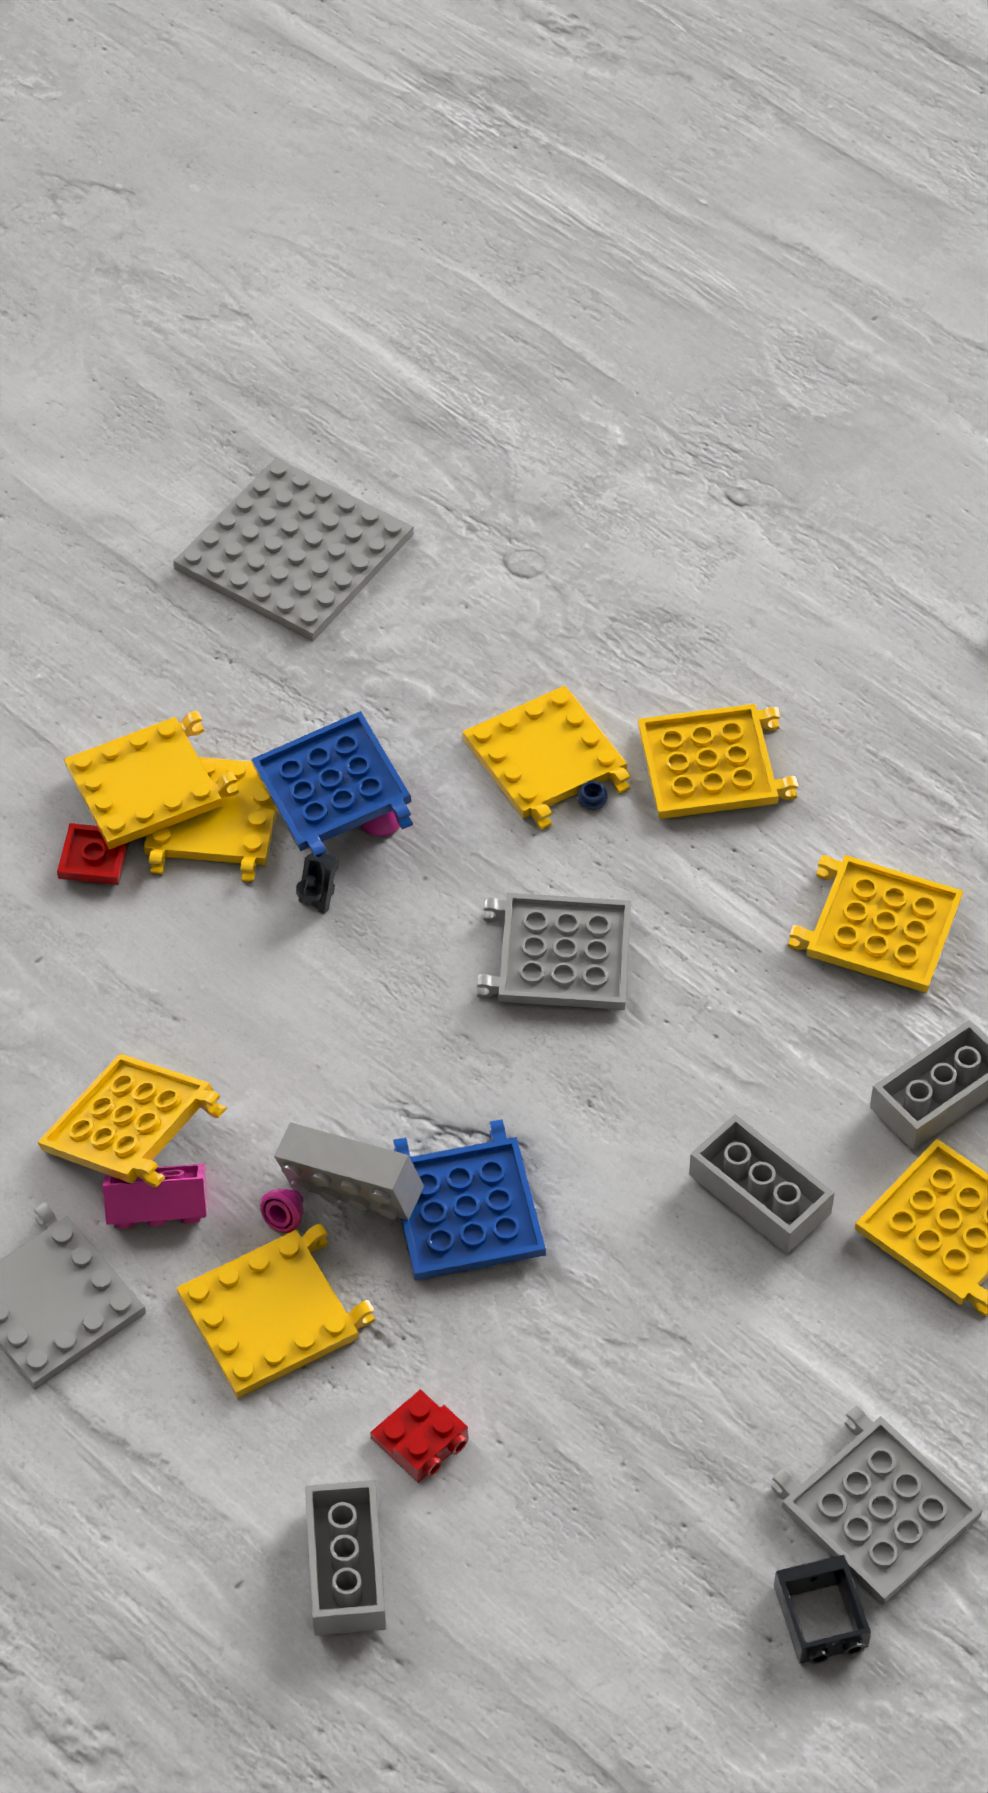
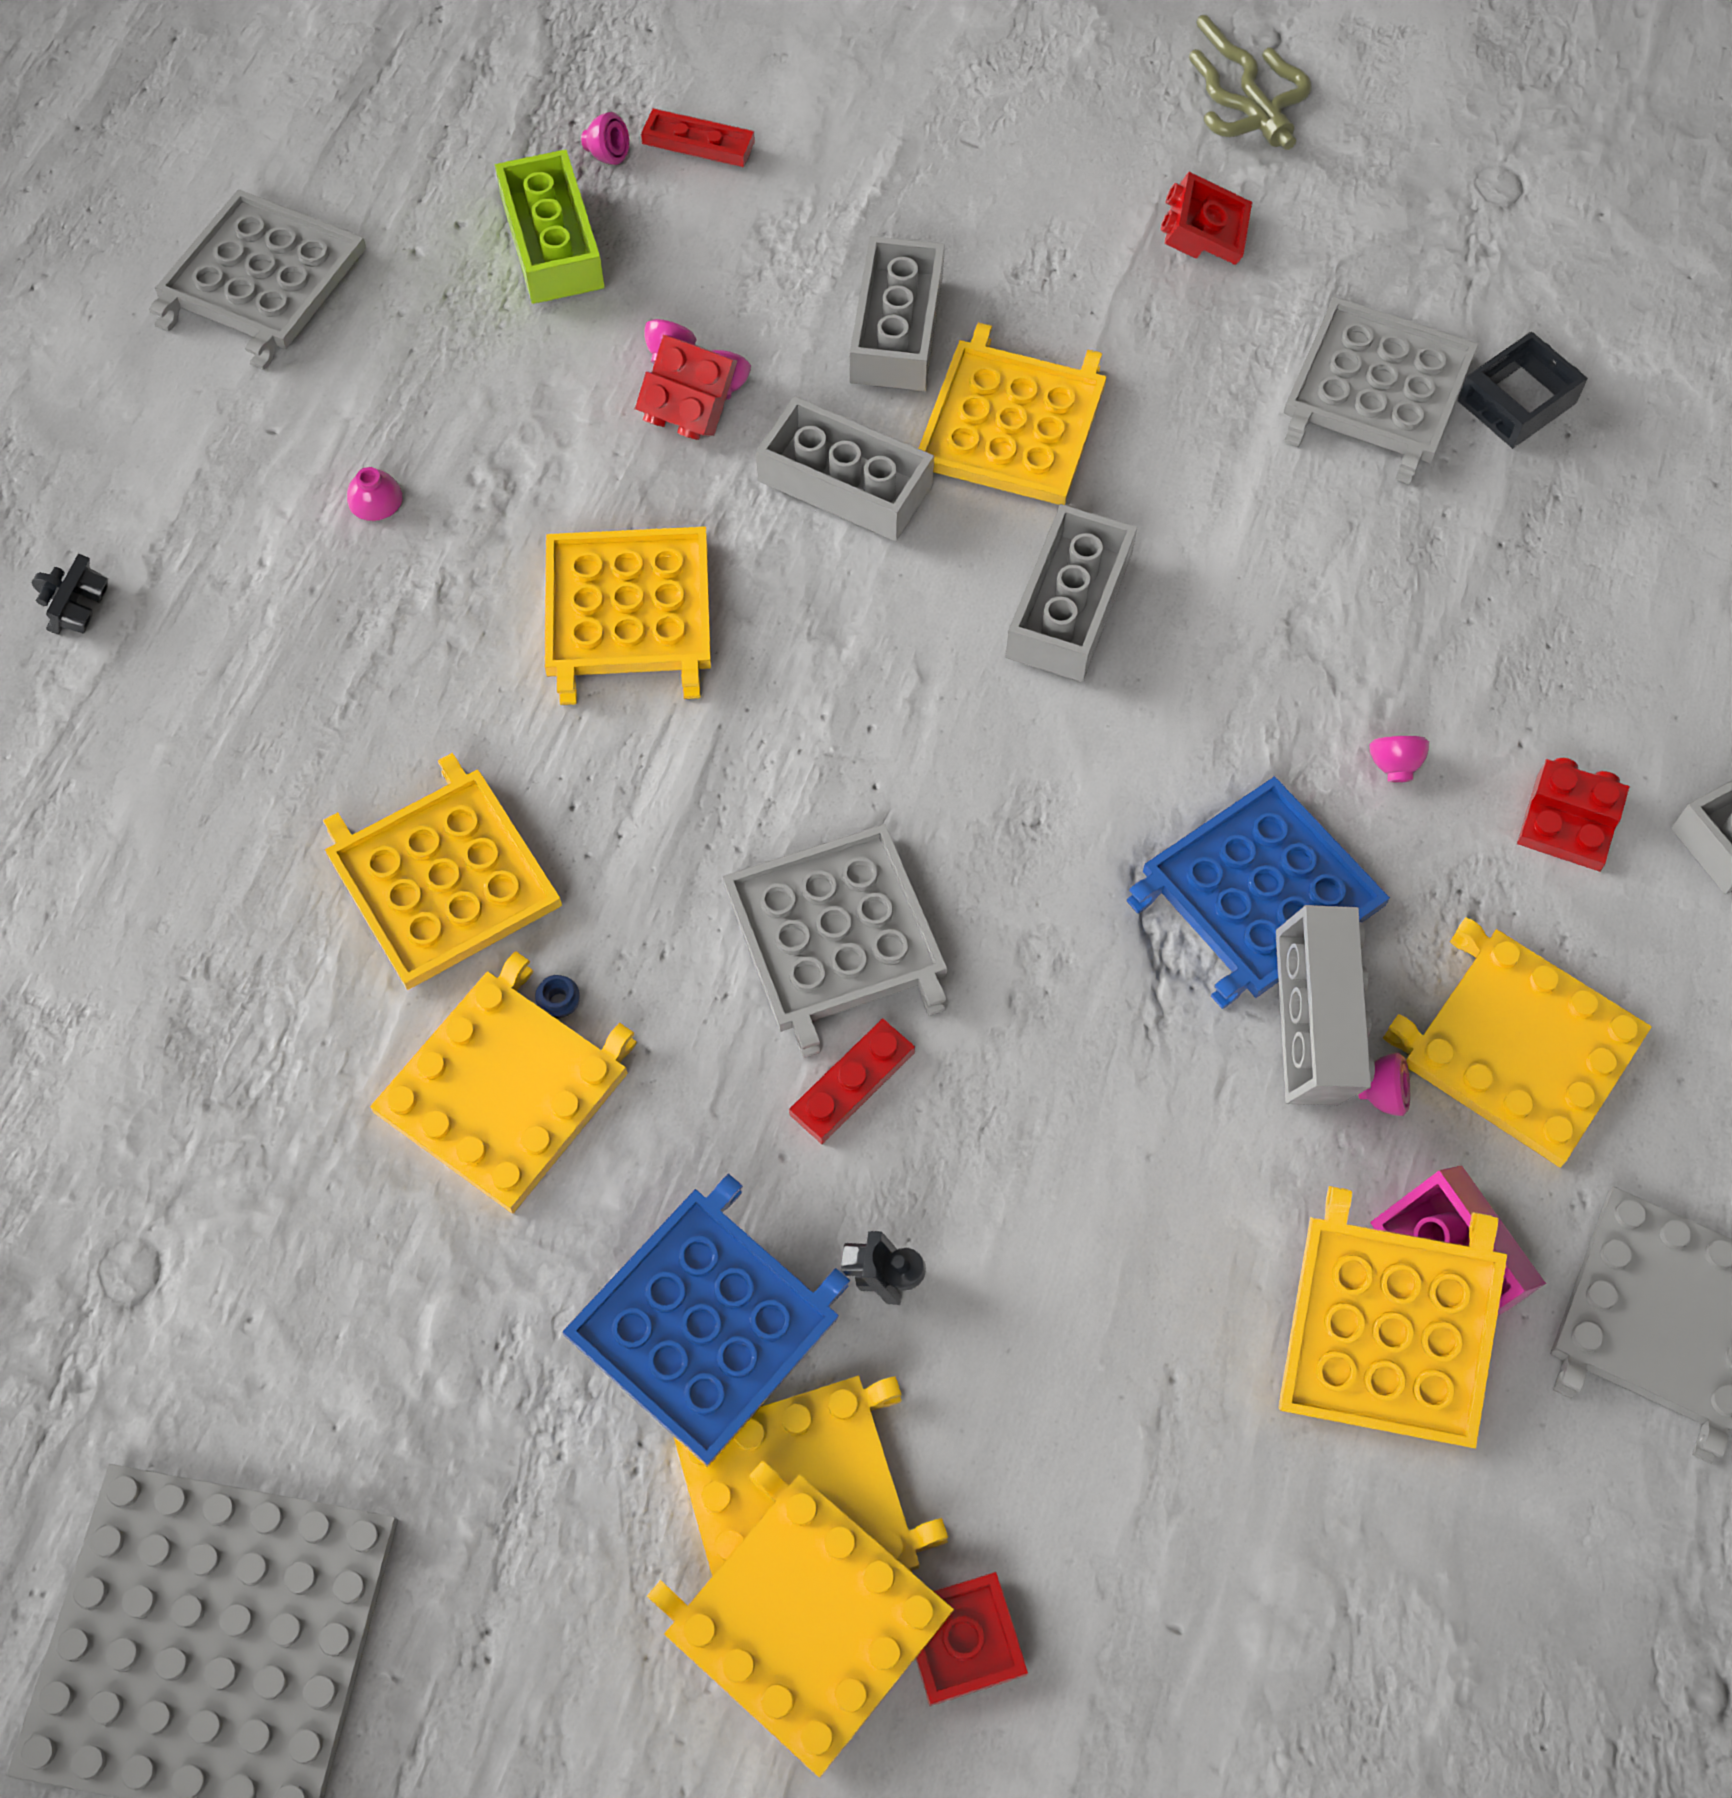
camera: 115 degrees left, 10 degrees up
(453, 927) = (851, 1081): none -> red plate
(525, 1340) = (1399, 756): none -> dark pink brick

